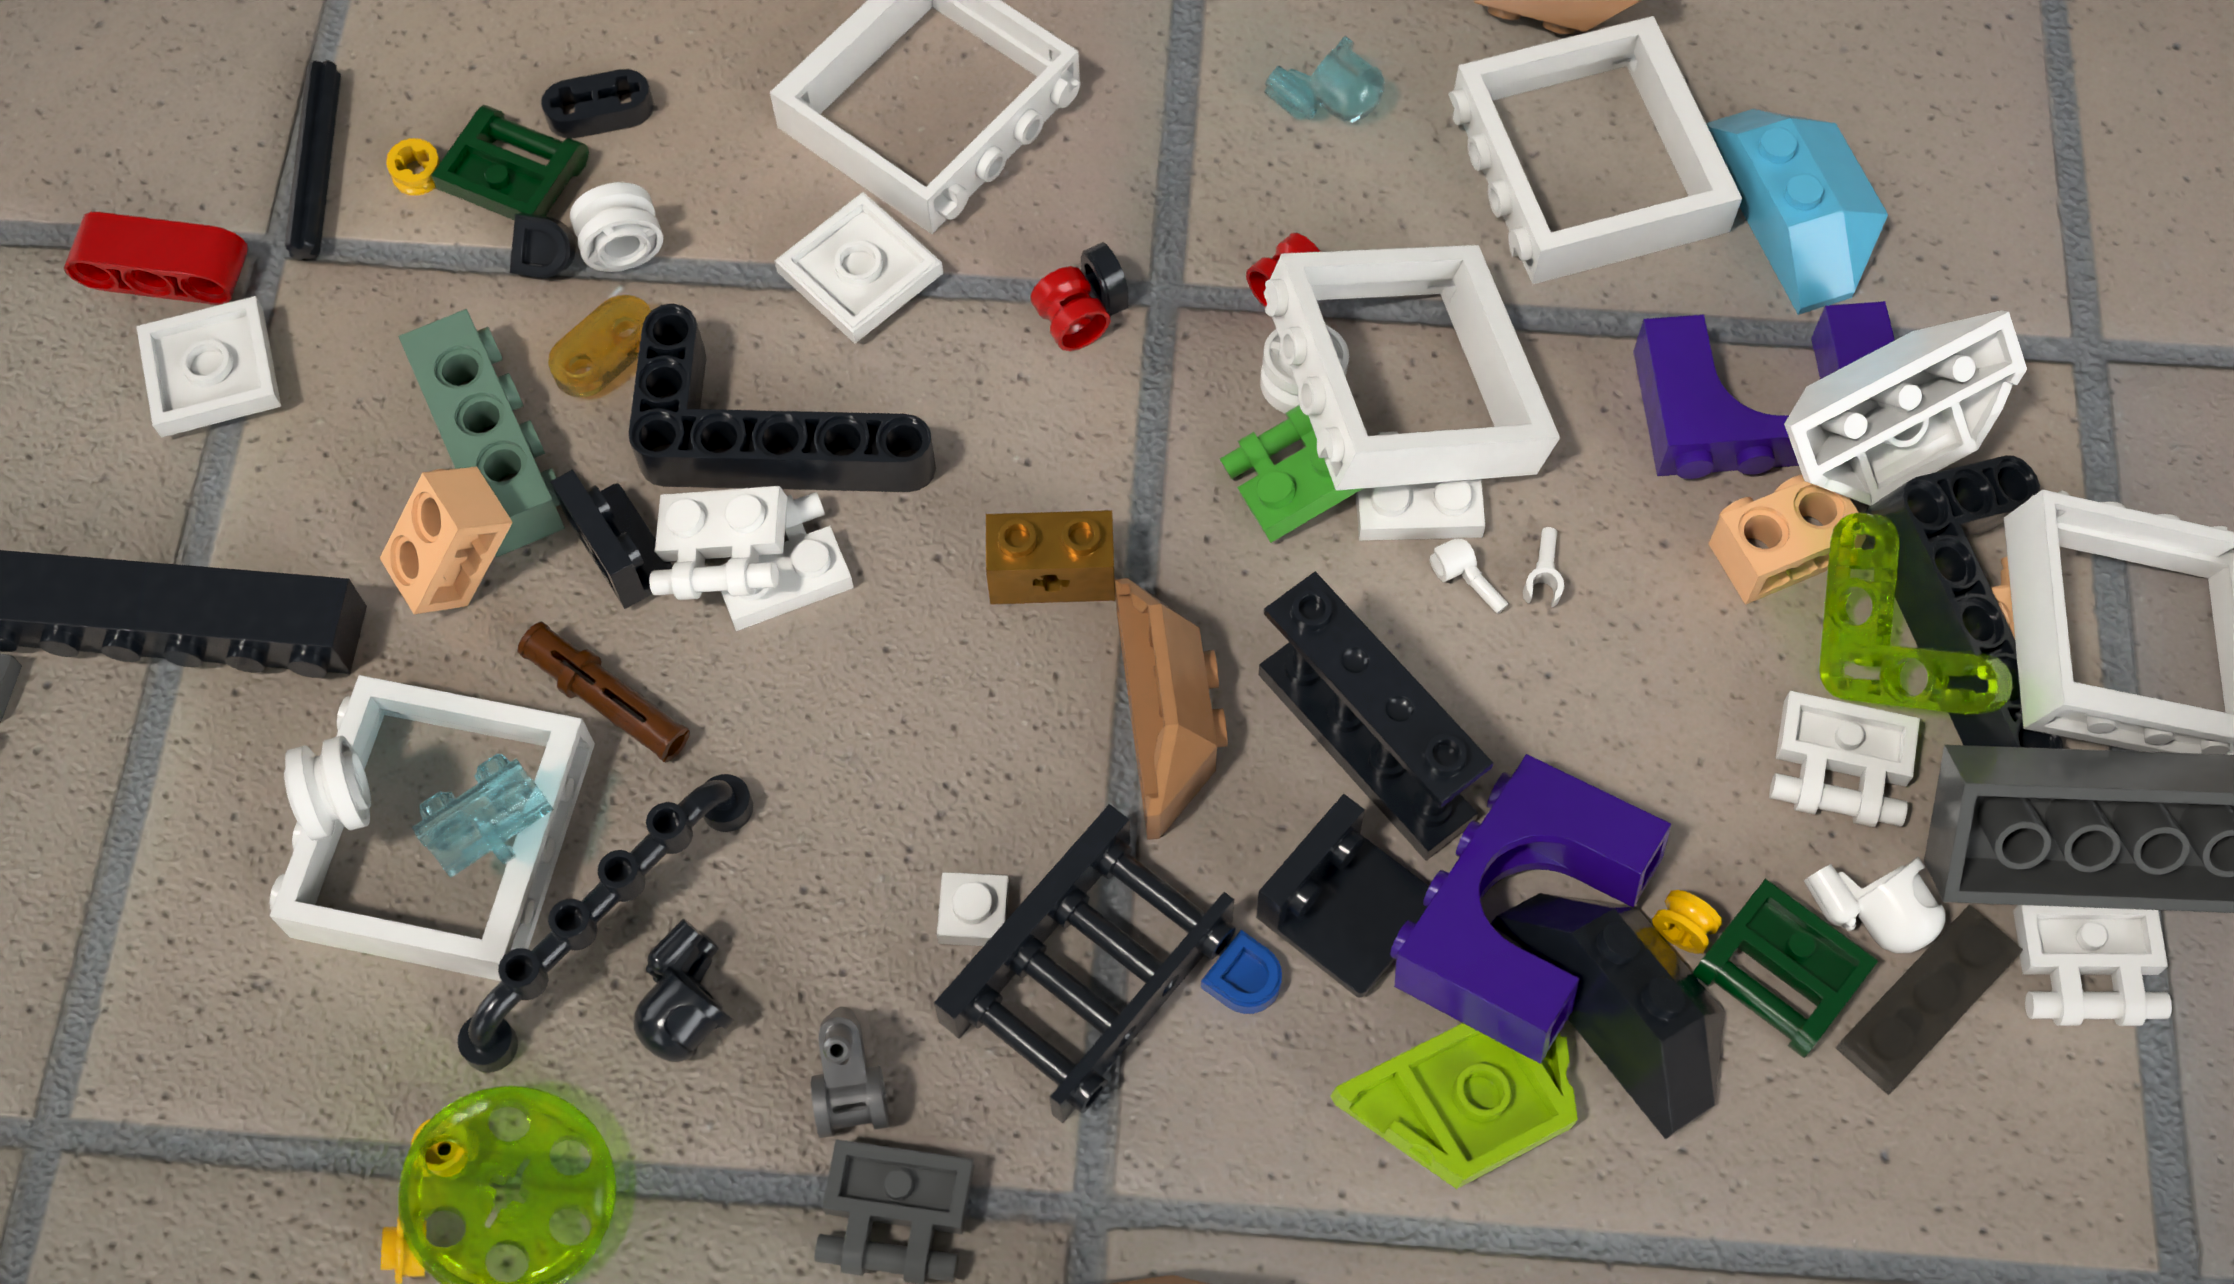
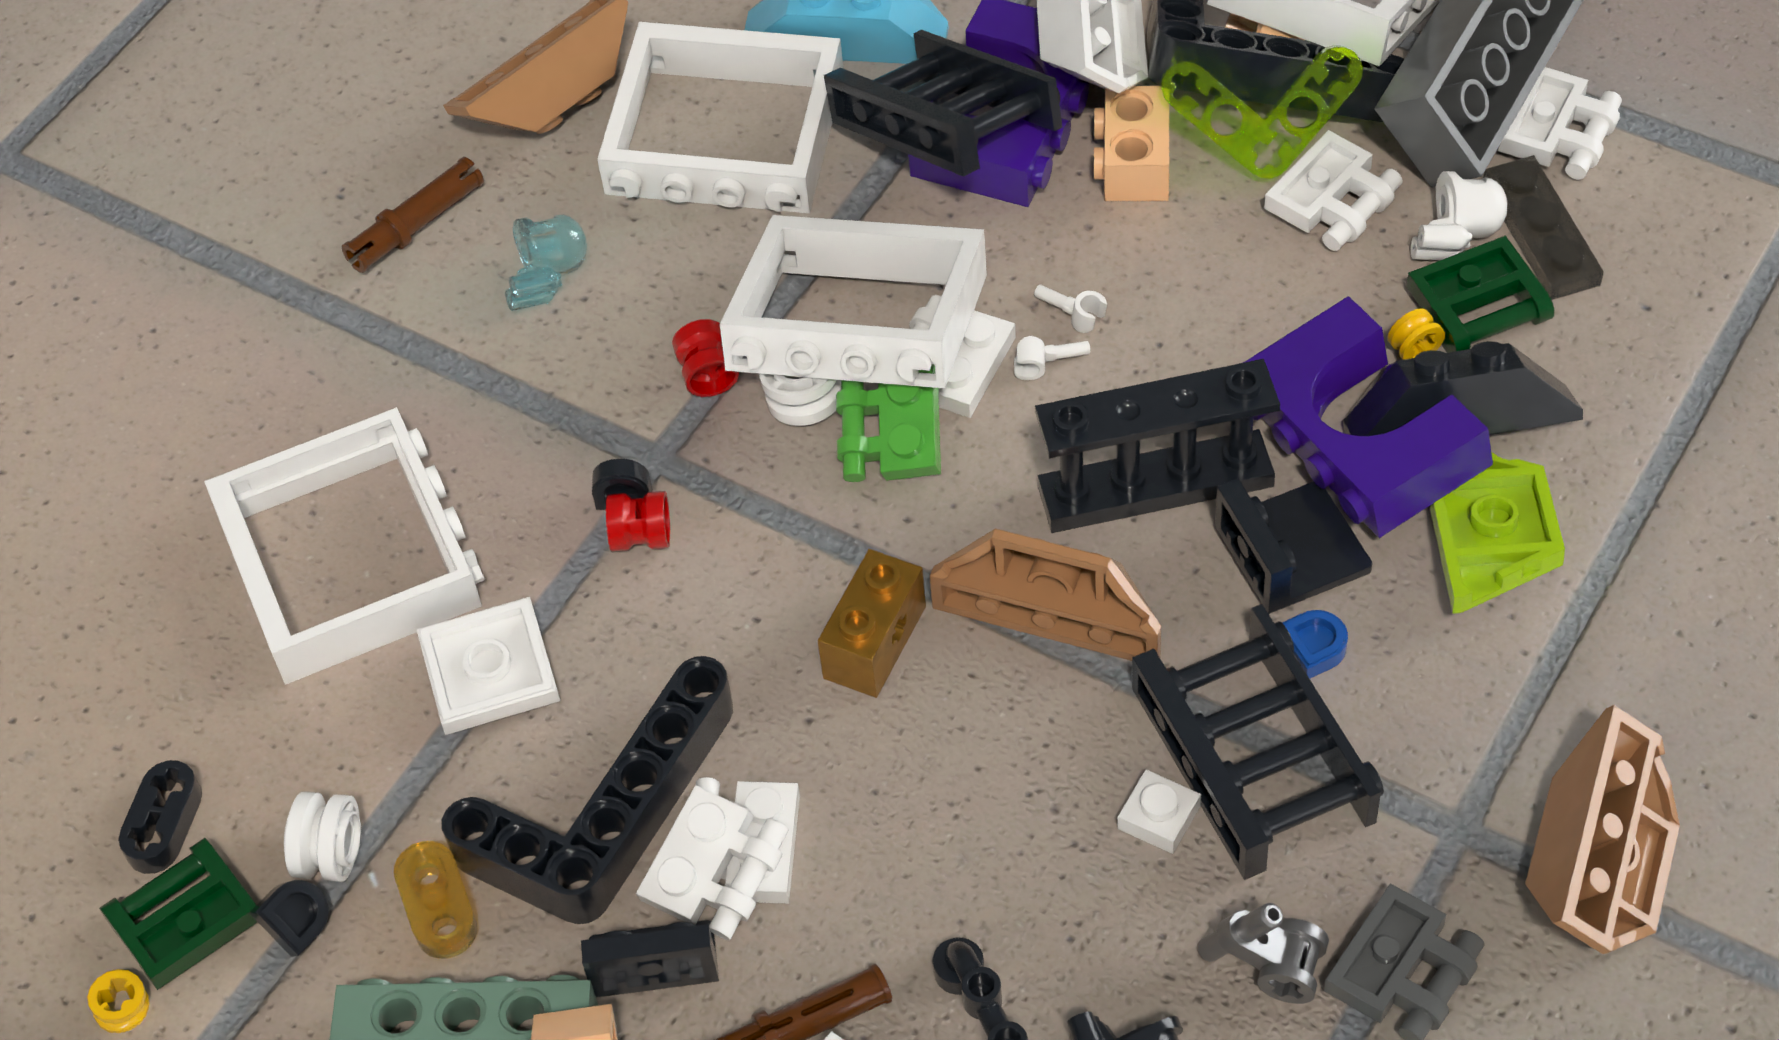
camera: 60 degrees left, 10 degrees down
(1649, 316) = (942, 131): none -> black fence

